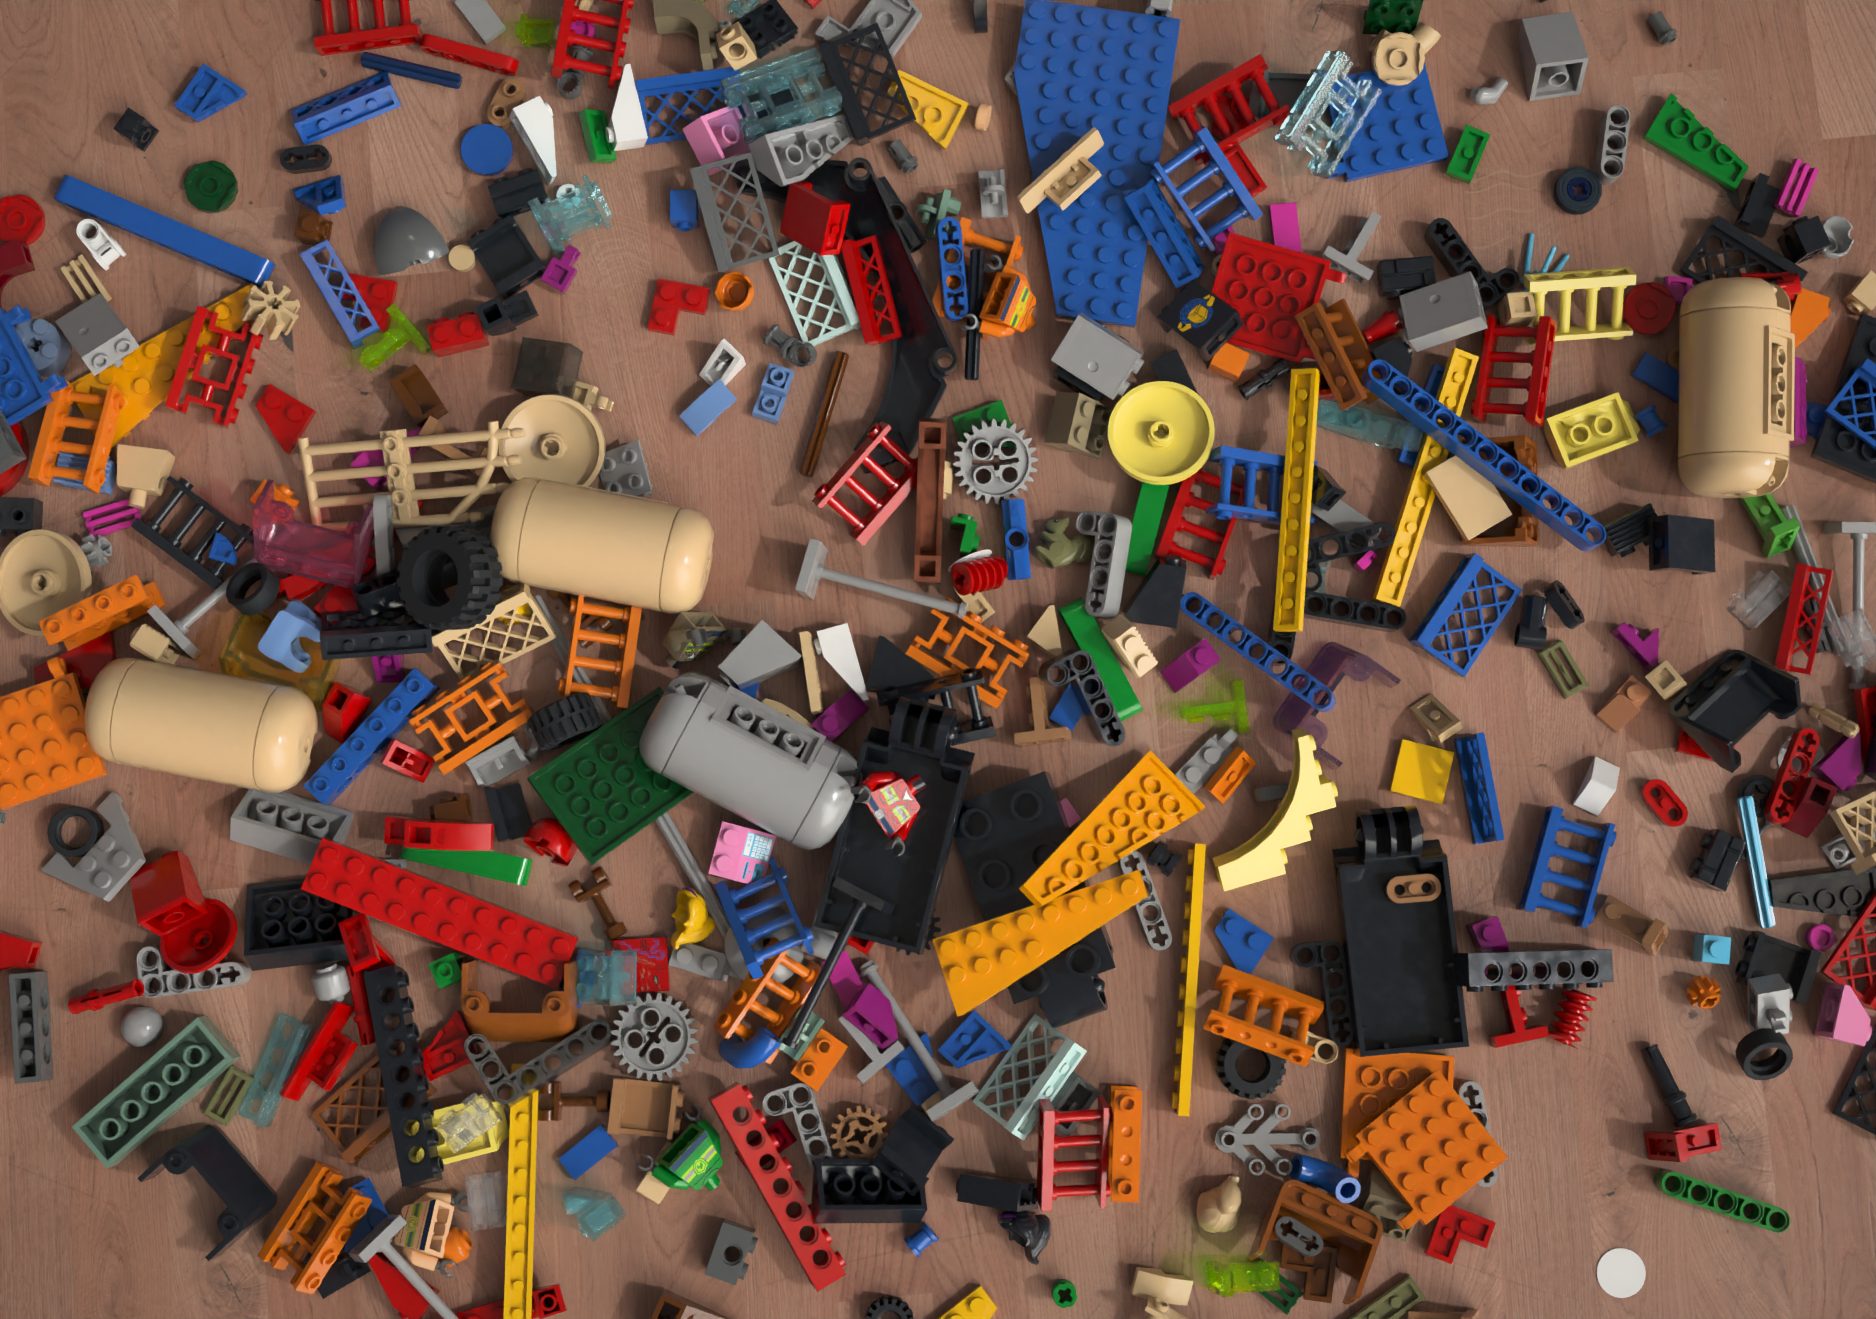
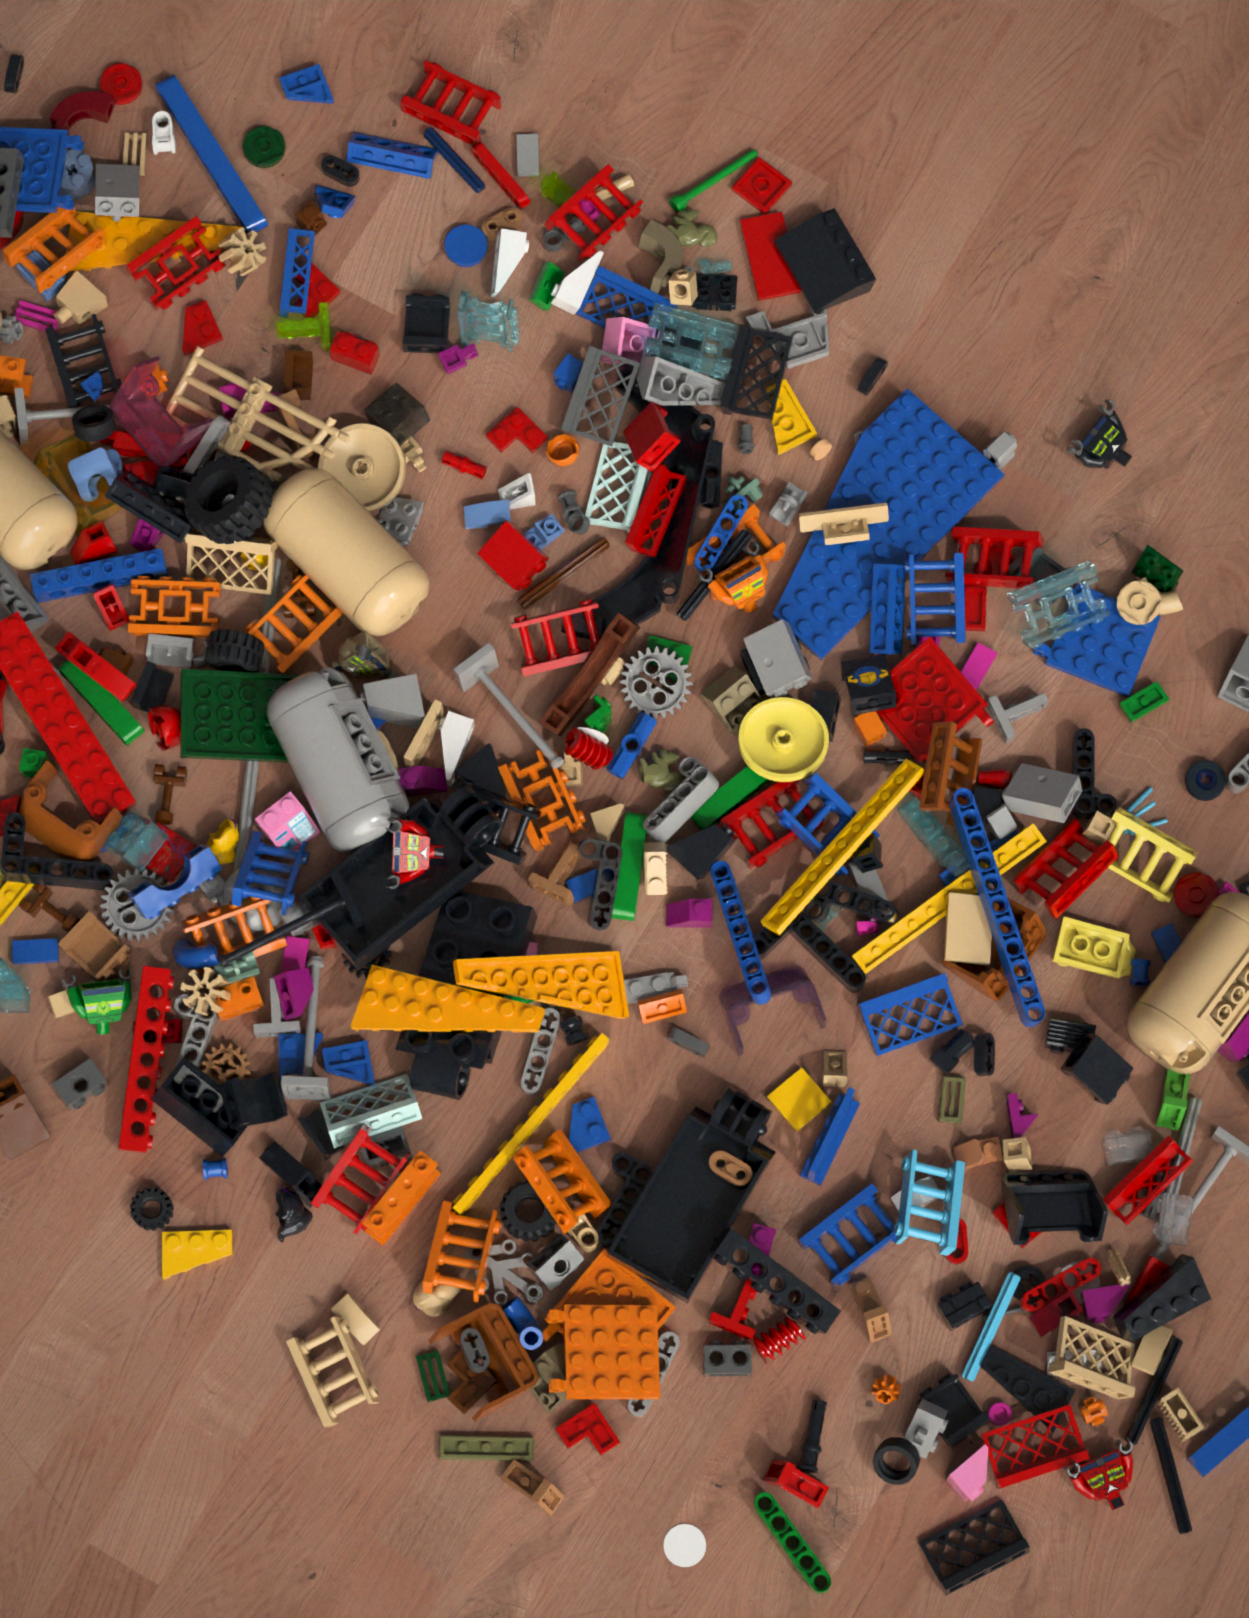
camera: 35 degrees right, 10 degrees down
(136, 129) = (242, 76): black brick -> none
(406, 240) = (366, 267): dark grey brick -> none
(462, 258) = (395, 305): tan tile -> none
(503, 316) = (394, 361): black brick -> none
(513, 194) = (457, 281): black brick -> none
(648, 373) = (464, 465): none -> red pin
(690, 962) = (198, 866): none -> arch
(766, 432) = (513, 556): none -> red brick
(786, 1088) = (208, 999): none -> tan gear
(989, 1131) = (318, 1132): none -> black panel
(1063, 1284) = (291, 1277): green bush -> none
(1203, 1174) = (444, 1237): none -> orange fence
(1222, 711) = (688, 958): clear neon green bracket -> none
(1242, 1277) = (417, 1351): clear neon green bracket -> none
(1290, 825) = (643, 1075): light yellow arch -> none
(1311, 1096) = (543, 1263): none -> brick
(1404, 275) = (1037, 752): black brick -> none
(1422, 368) = (1001, 822): none -> light grey slope
(1489, 95) = (1190, 673): light grey arm -> none
(1540, 1077) = (727, 1366): none -> dark grey brick
(1645, 777) = (951, 1196): none -> medium azure fence
(1711, 949) = (913, 1363): medium azure brick -> none

